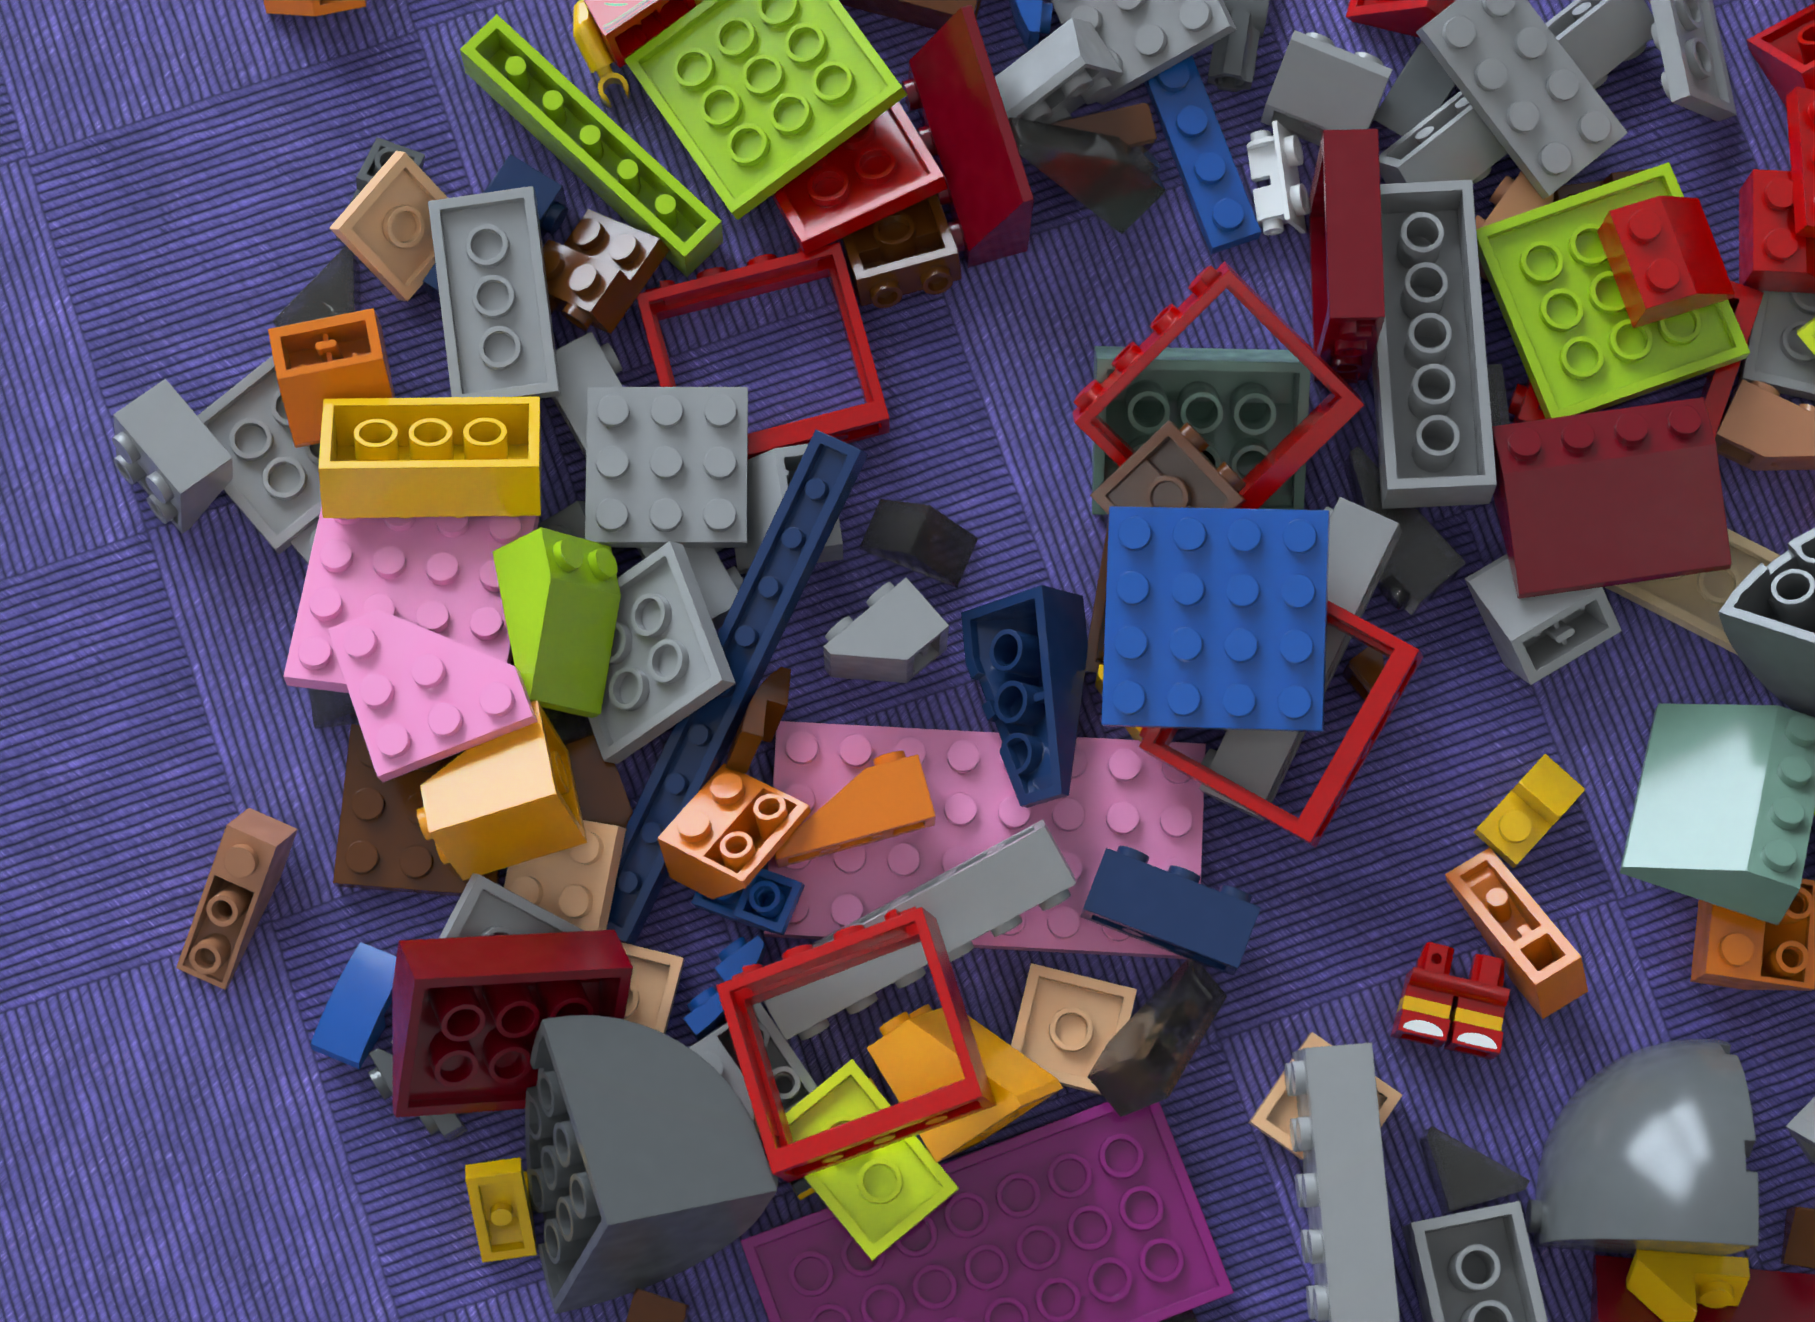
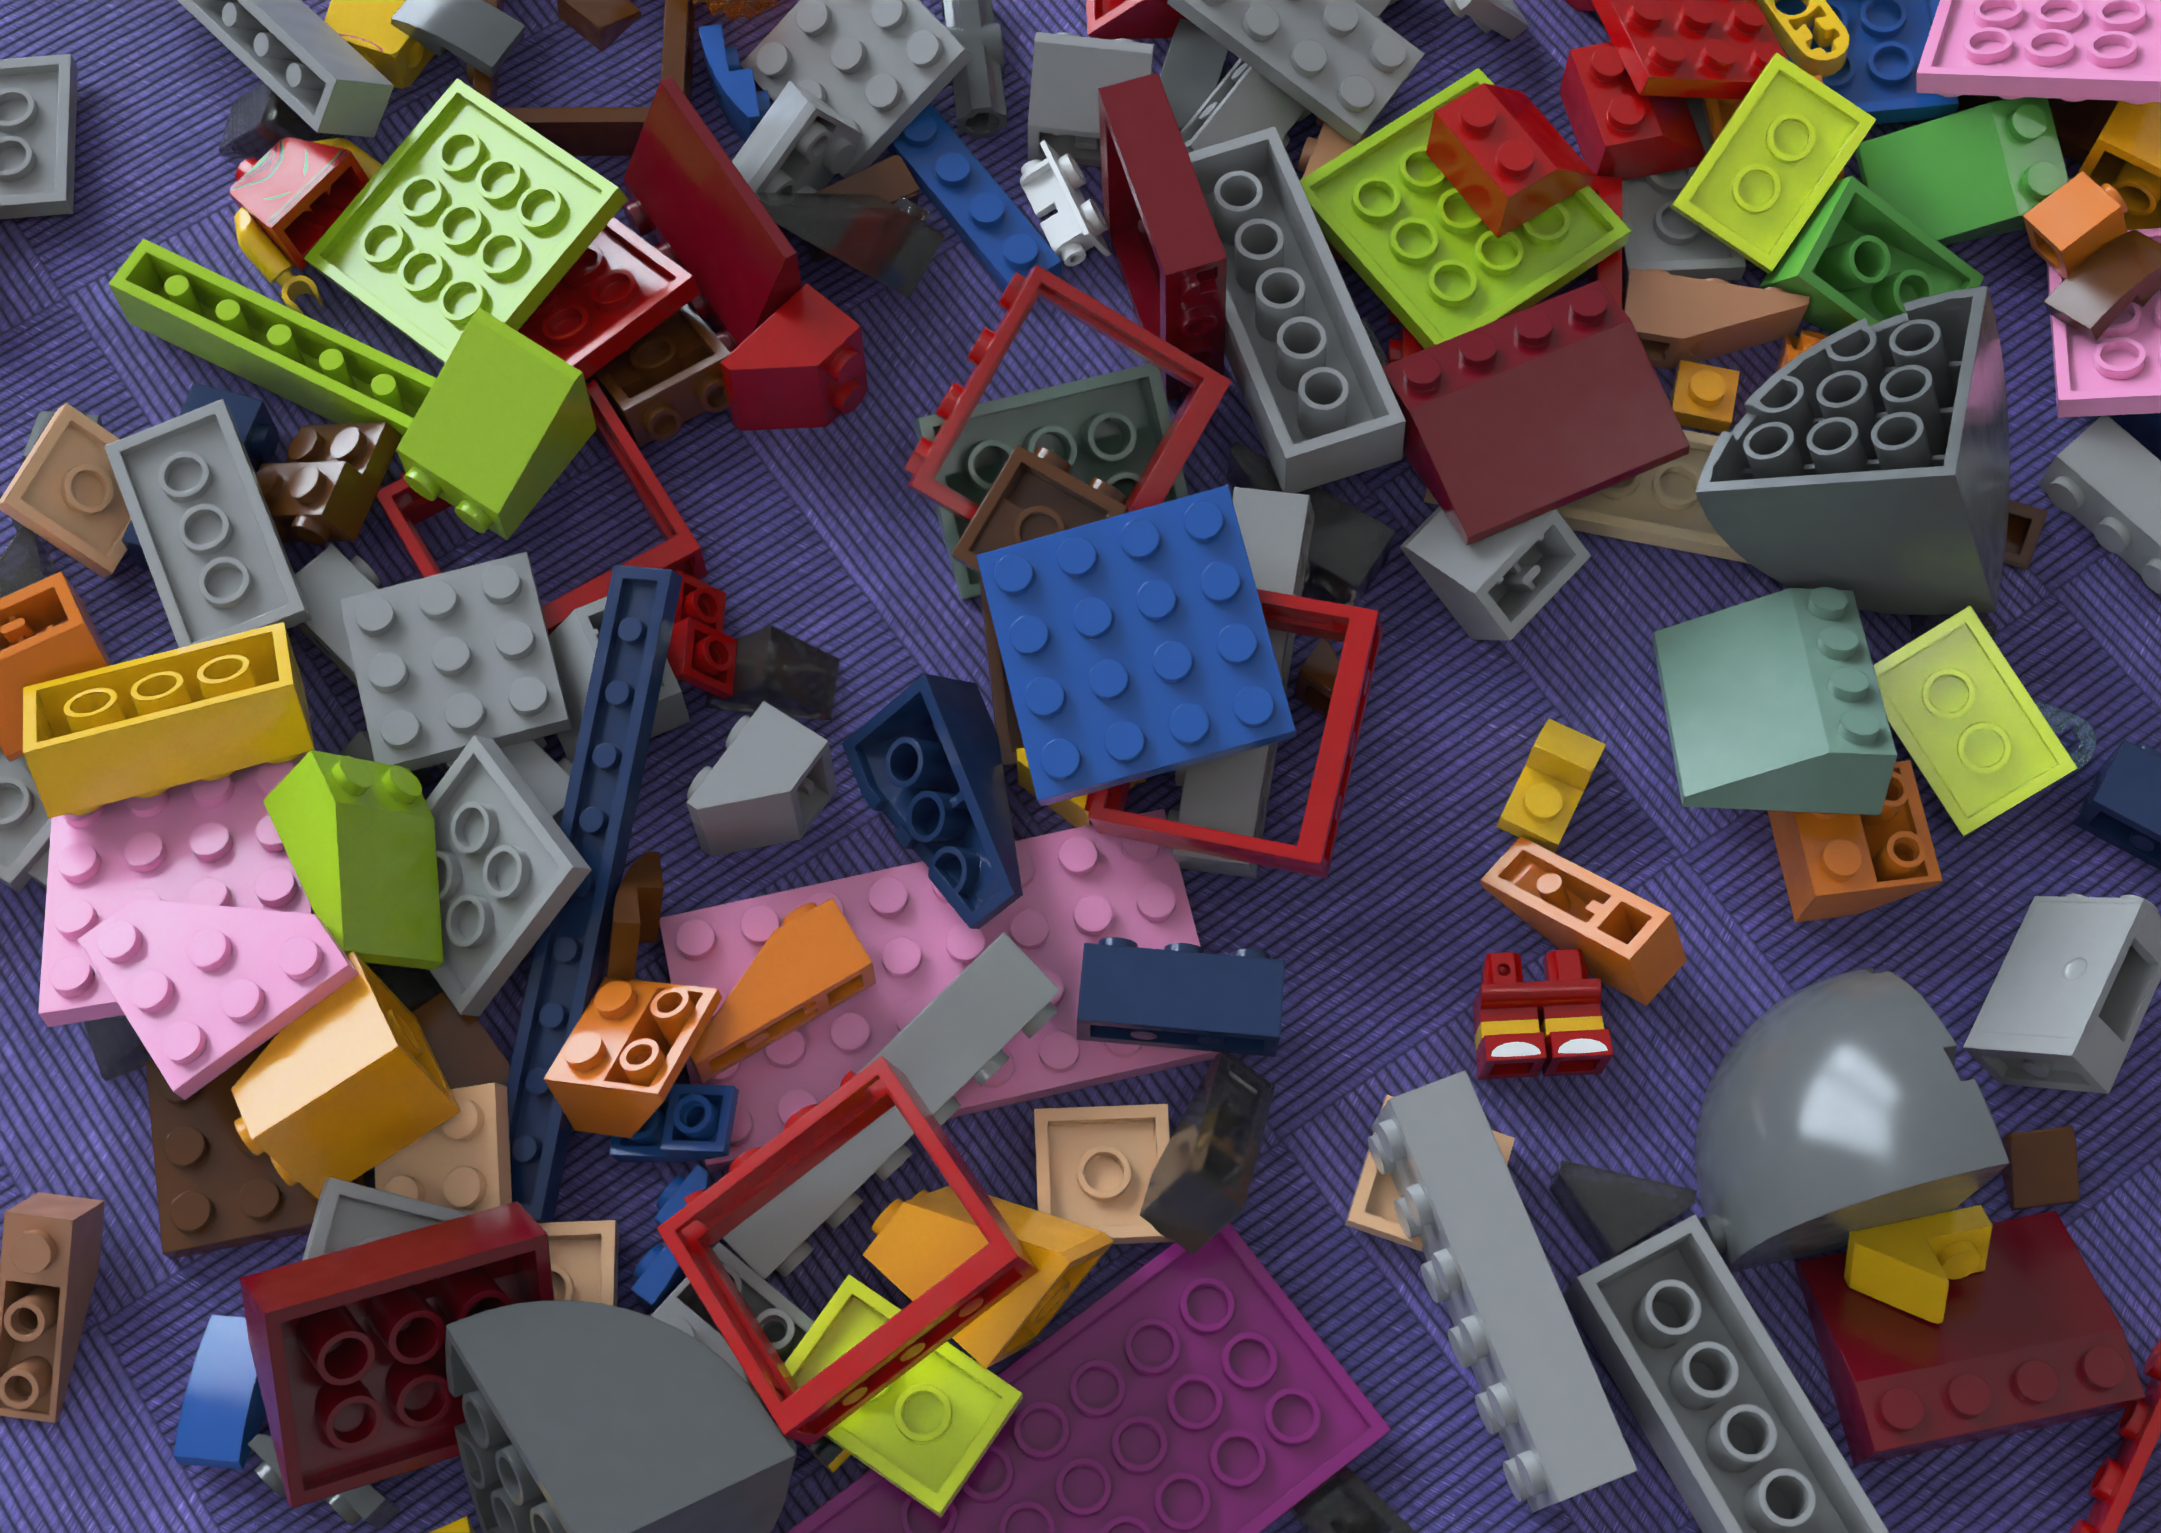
camera: 15 degrees left, 10 degrees down
(748, 275) = (496, 427): none -> lime slope
(868, 508) = (697, 646): none -> red slope
(1011, 278) = (797, 367): none -> red slope
(1771, 506) = (1704, 396): none -> light orange plate

